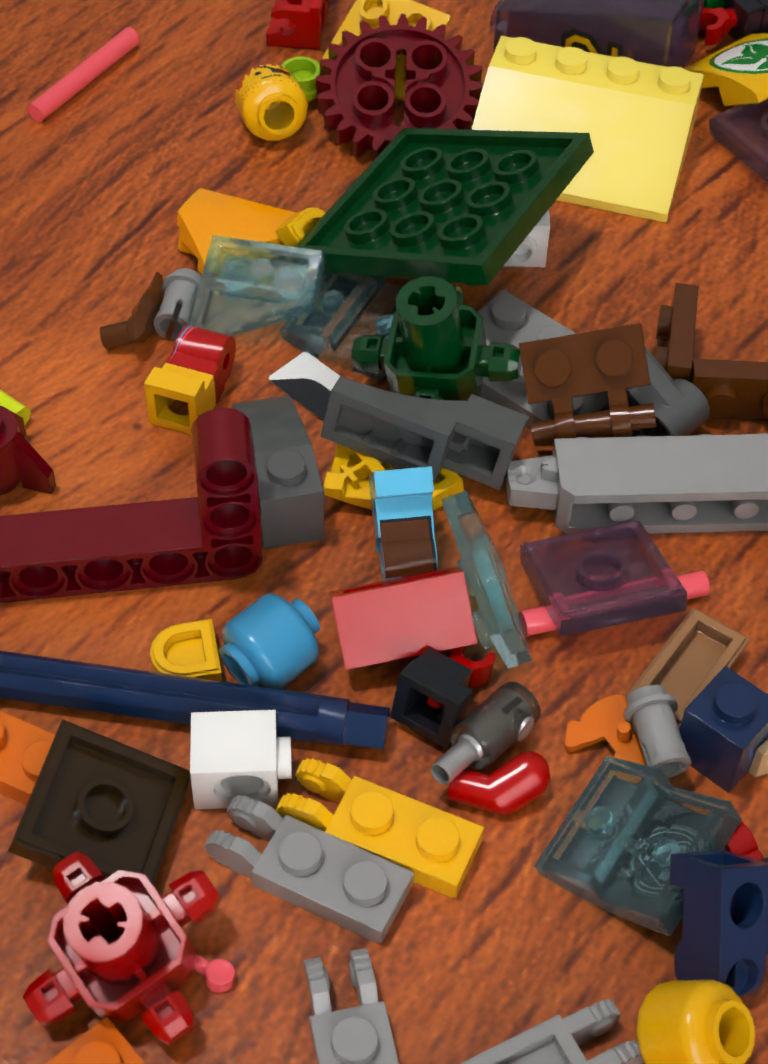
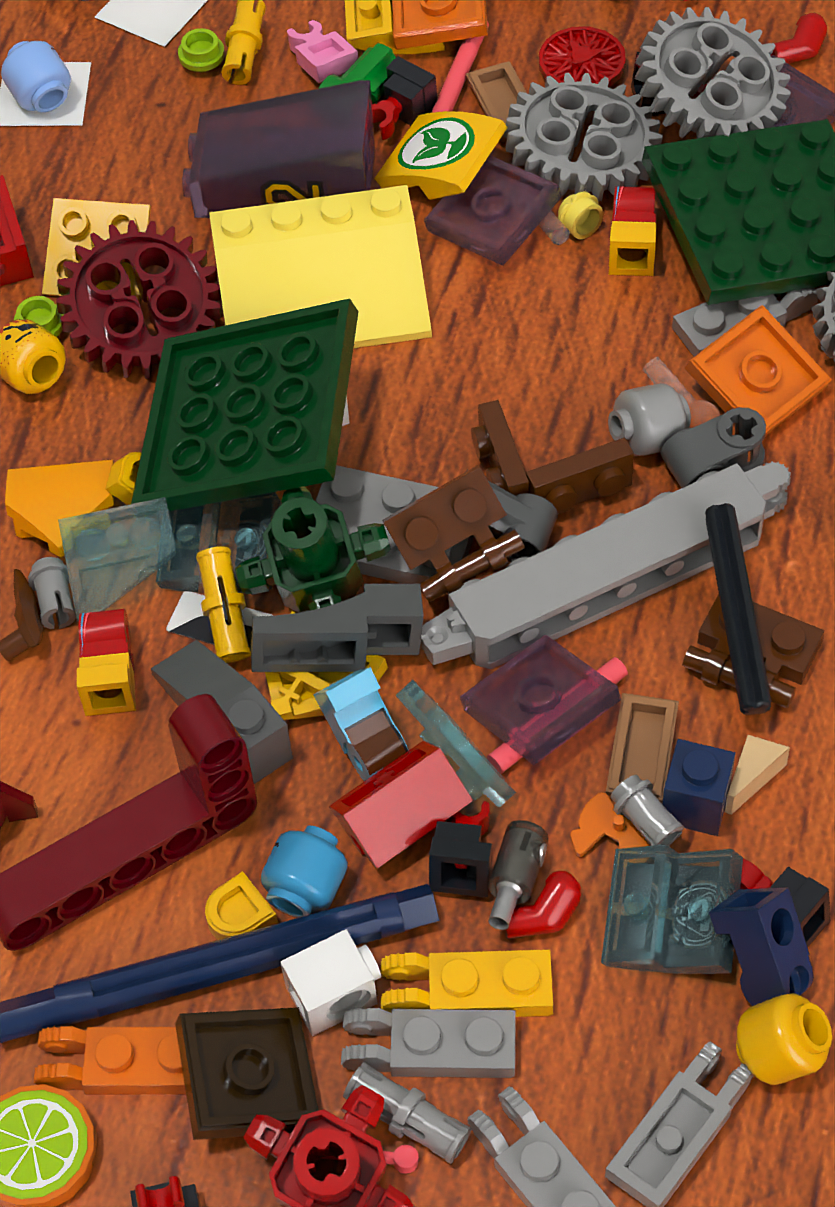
camera: 20 degrees left, 5 degrees up
(247, 931) = (412, 1115): none -> light grey pin
(336, 336) = (217, 570): none -> yellow pin

